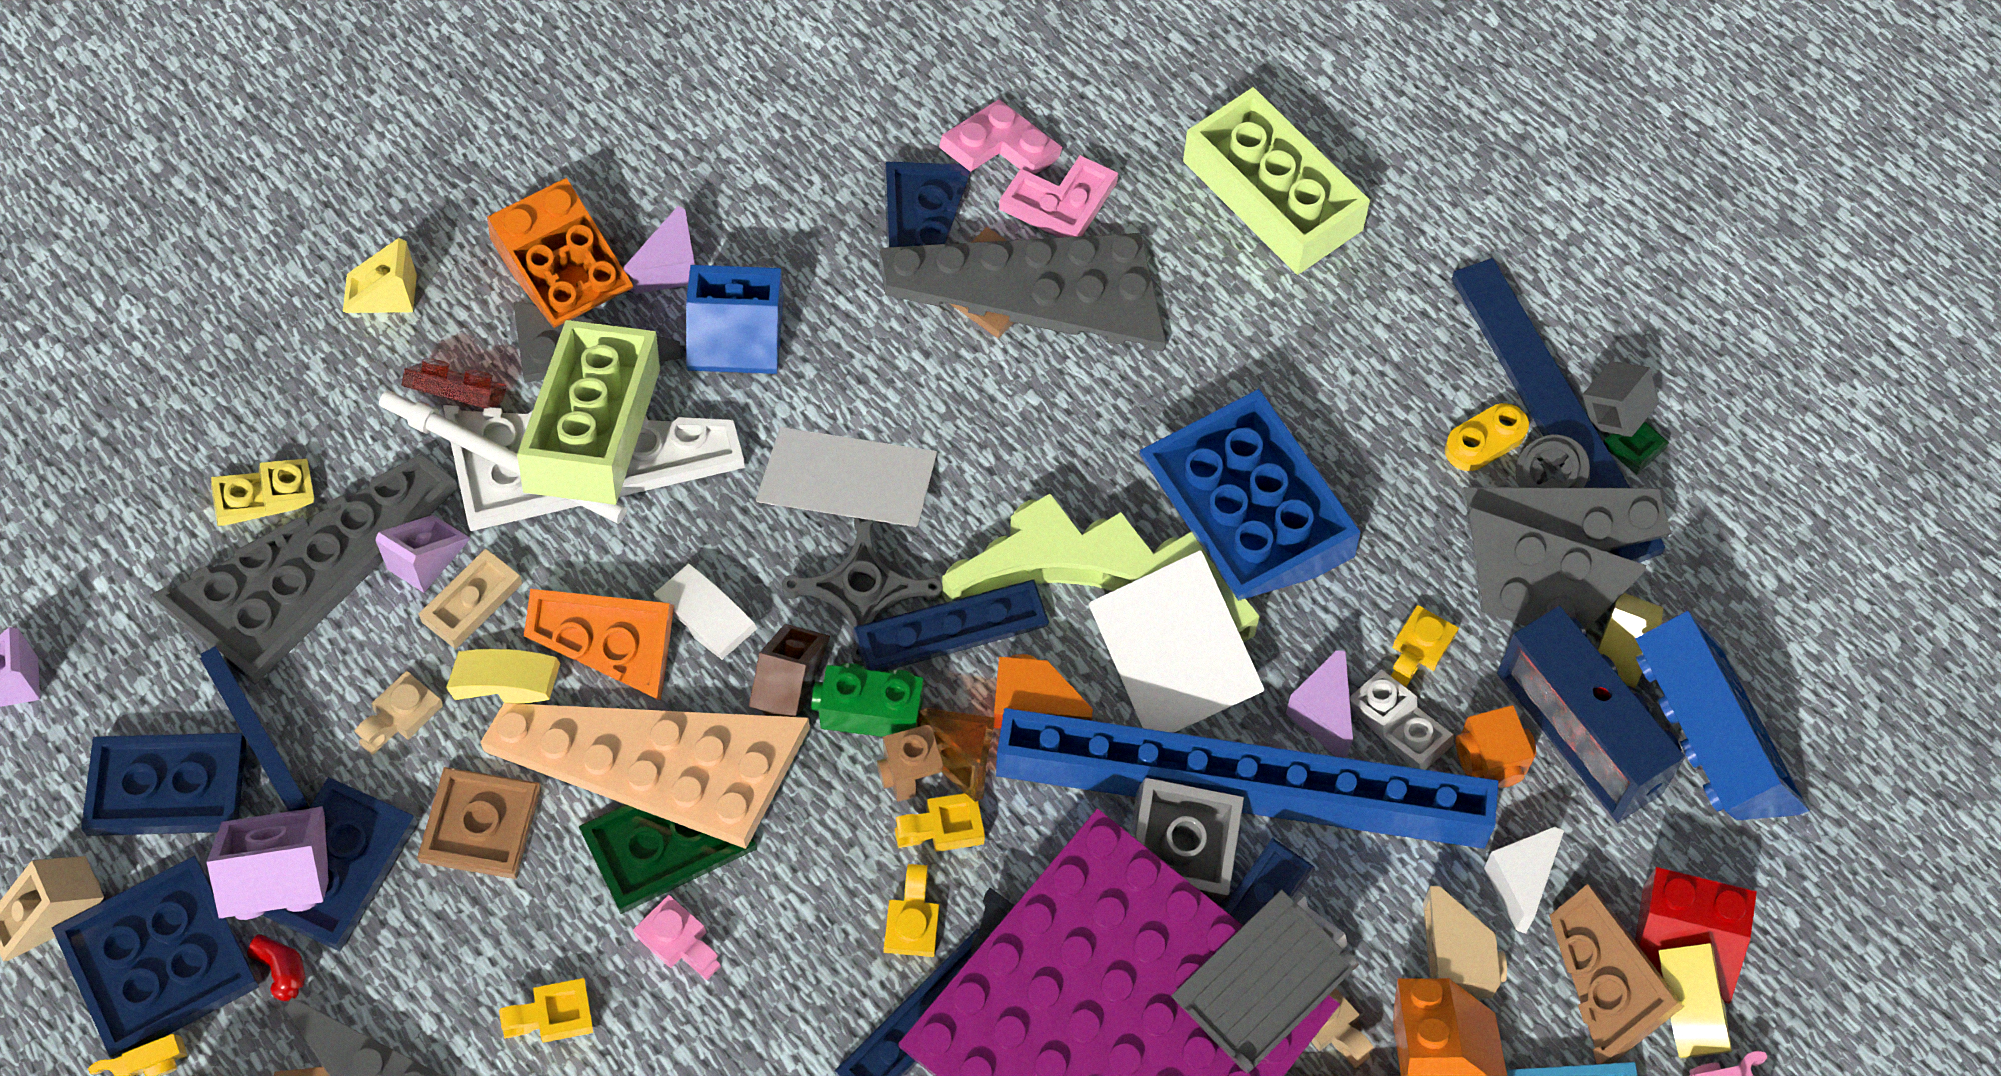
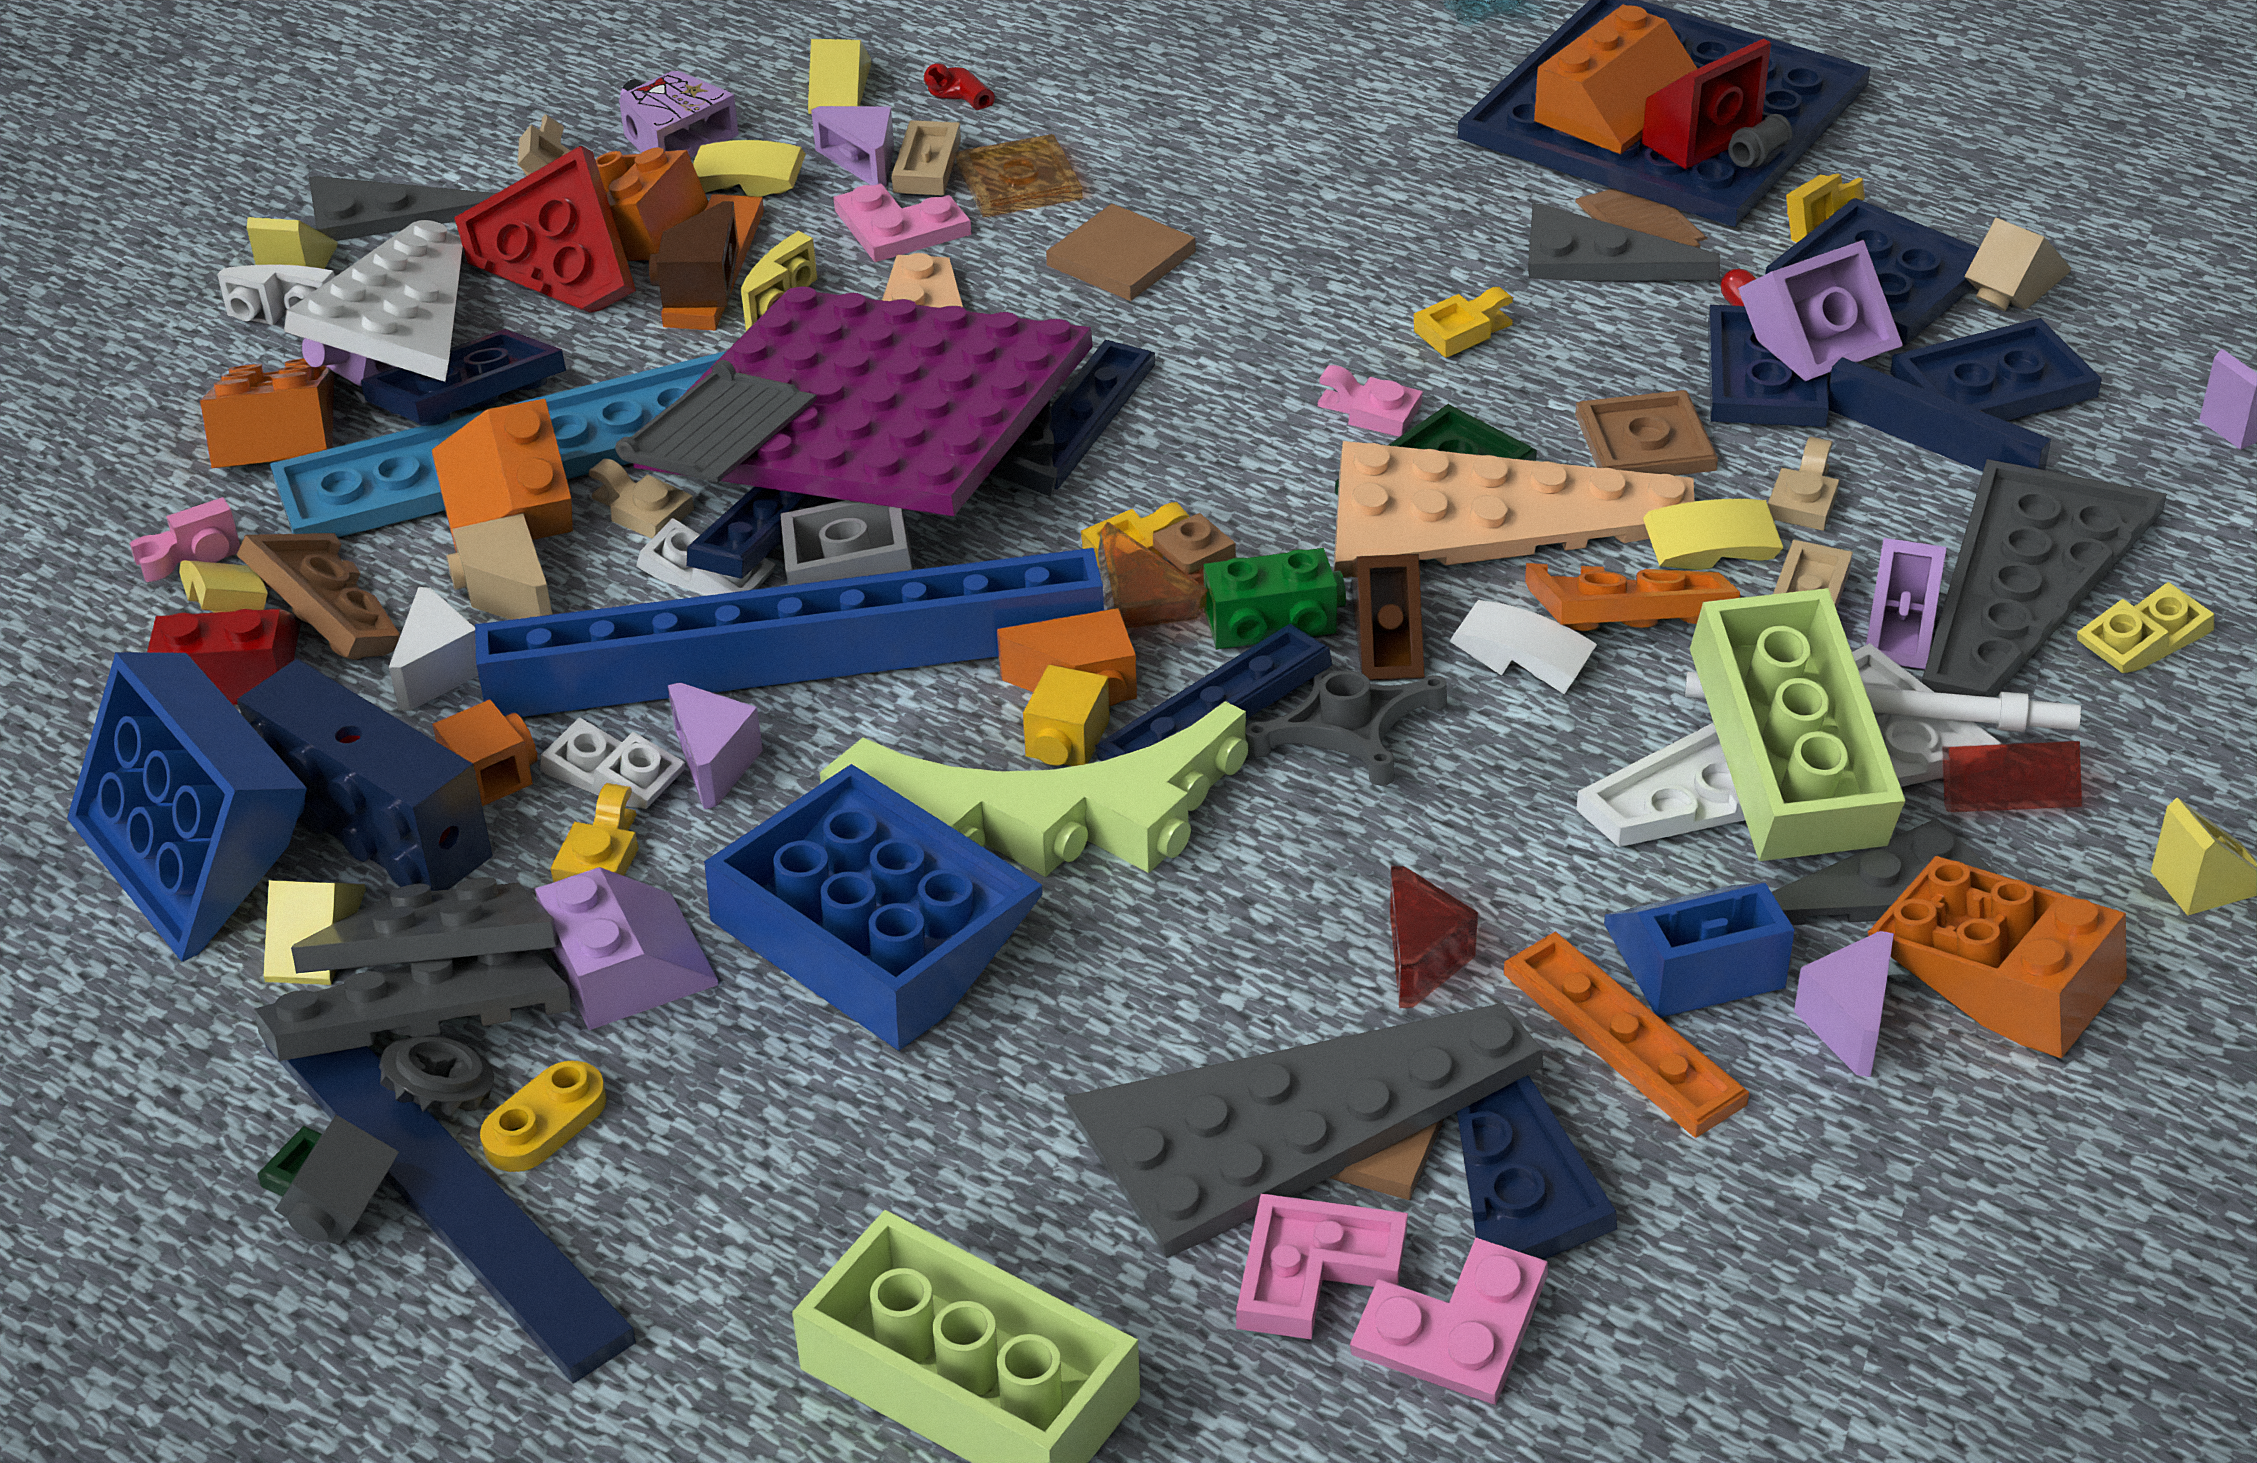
camera: 165 degrees right, 20 degrees down
(809, 296) = (1626, 1034): none -> orange tile
(847, 477) = (1440, 807): white sticker -> none
(899, 379) = (1429, 935): none -> clear red slope
(912, 922) = (1132, 470): yellow plate -> none
(1065, 639) = (1066, 716): none -> yellow brick
(1176, 645) = (920, 733): white sticker -> none
(1419, 537) = (622, 945): none -> lavender slope

